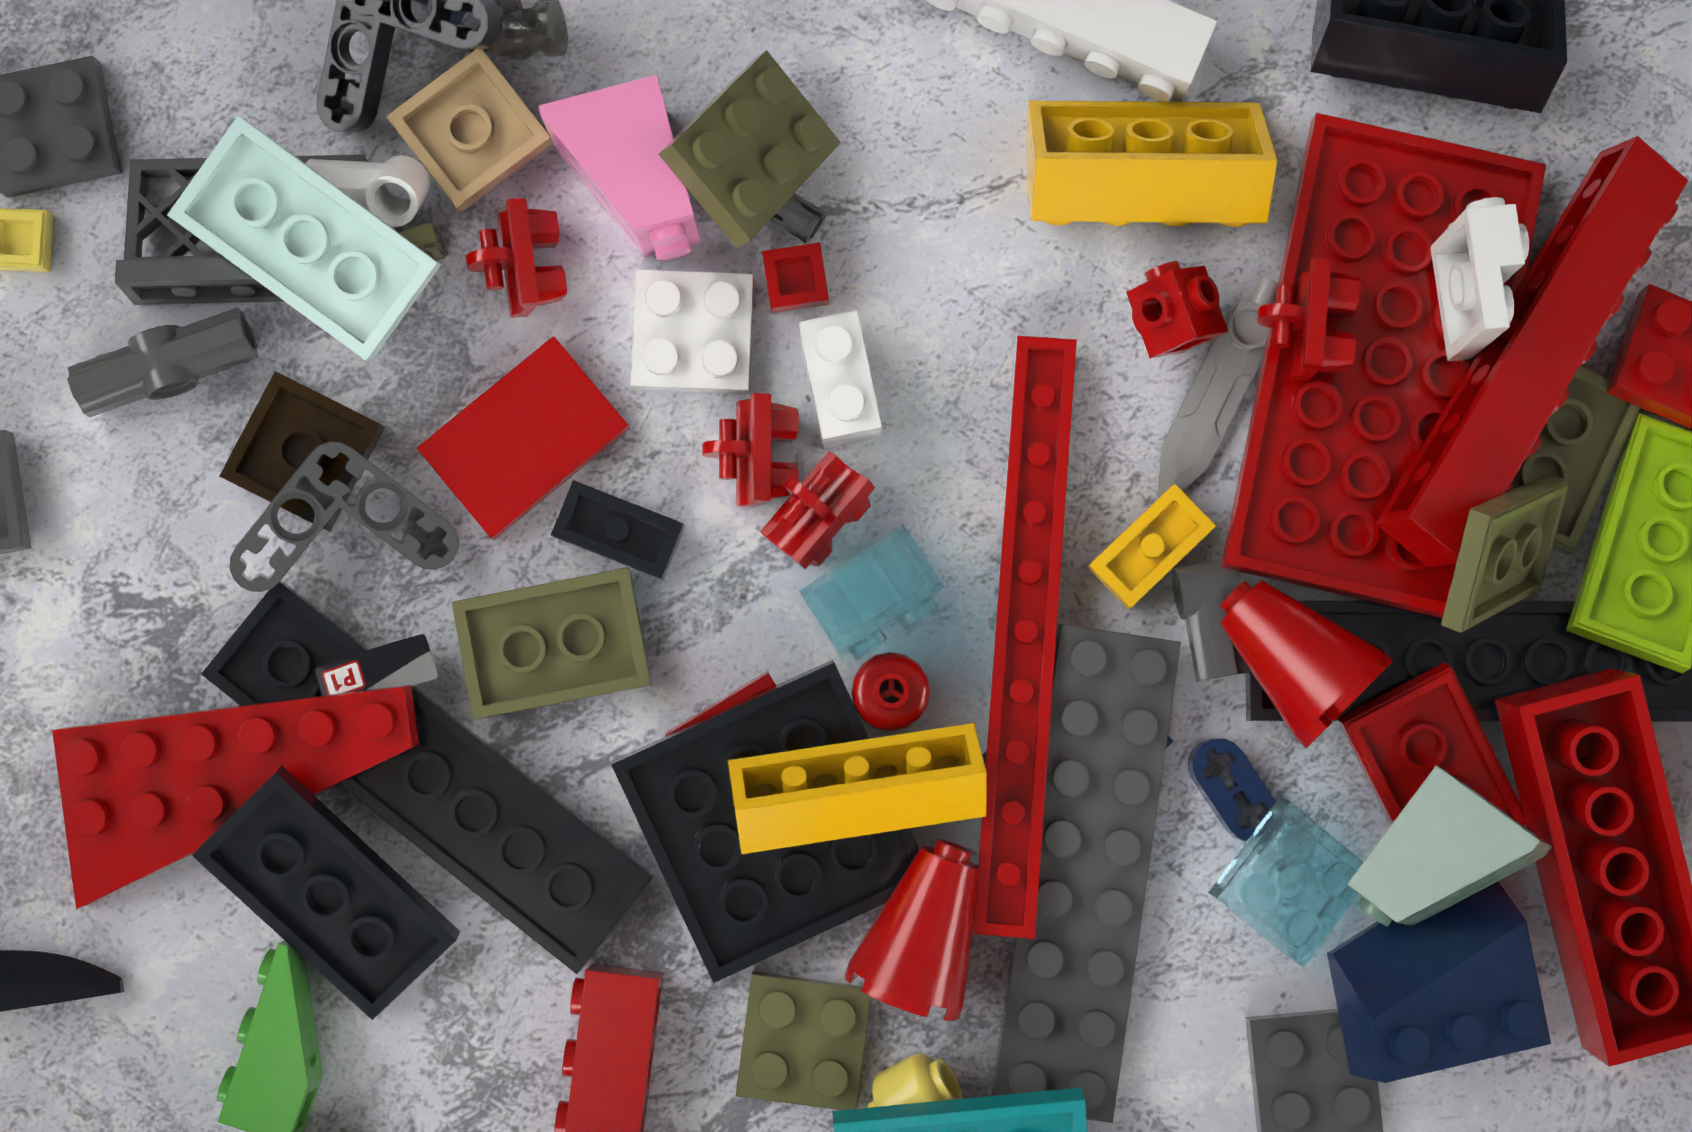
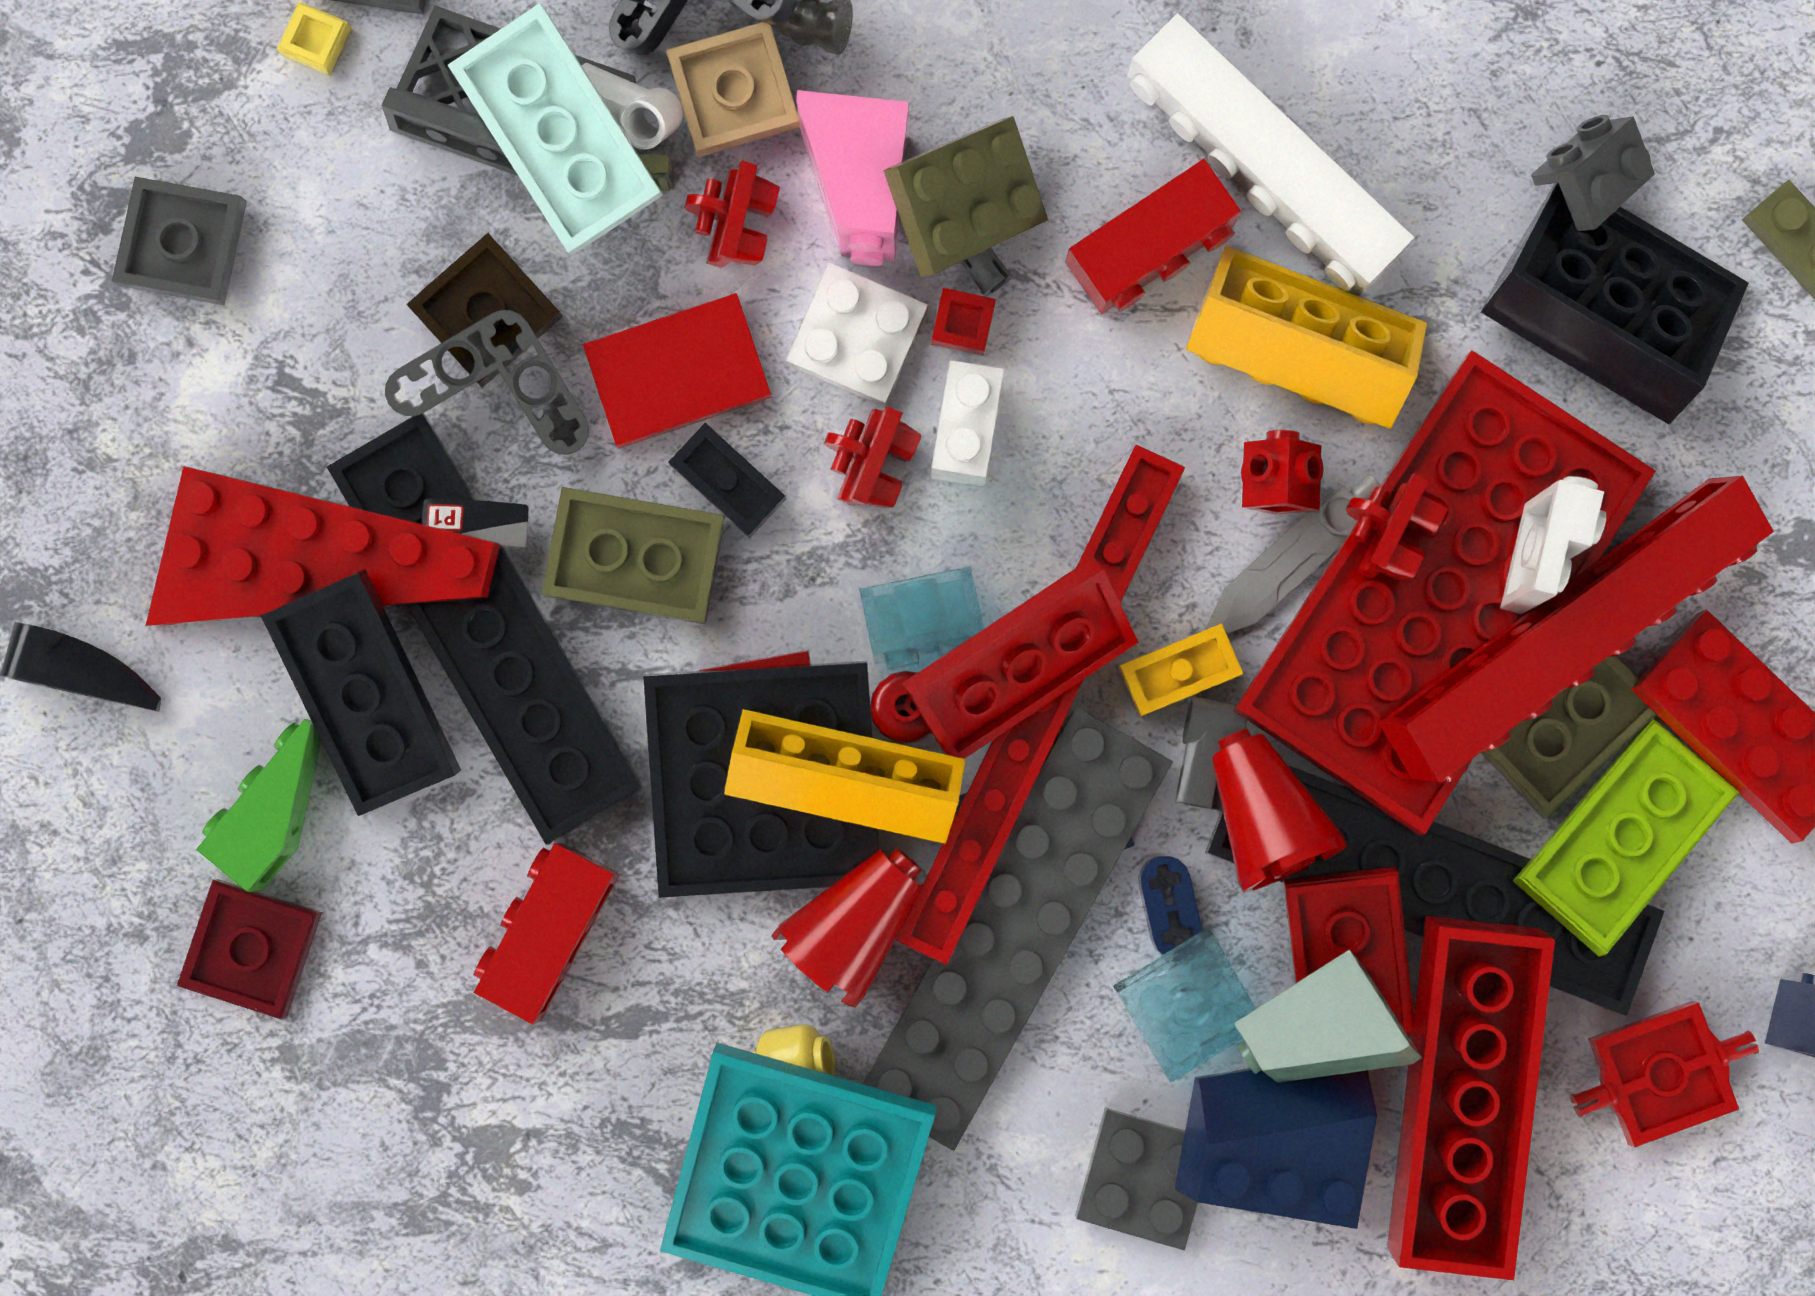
camera: 25 degrees right, 0 degrees up
(162, 362) = (395, 189): dark grey piece -> none
(803, 1042) = (716, 978): olive plate -> none
(818, 510) = (904, 528): red hips -> none
(955, 120) = (1154, 238): none -> red brick
(992, 600) = (1022, 661): none -> red plate
(1504, 551) = (1481, 789): olive tile -> none

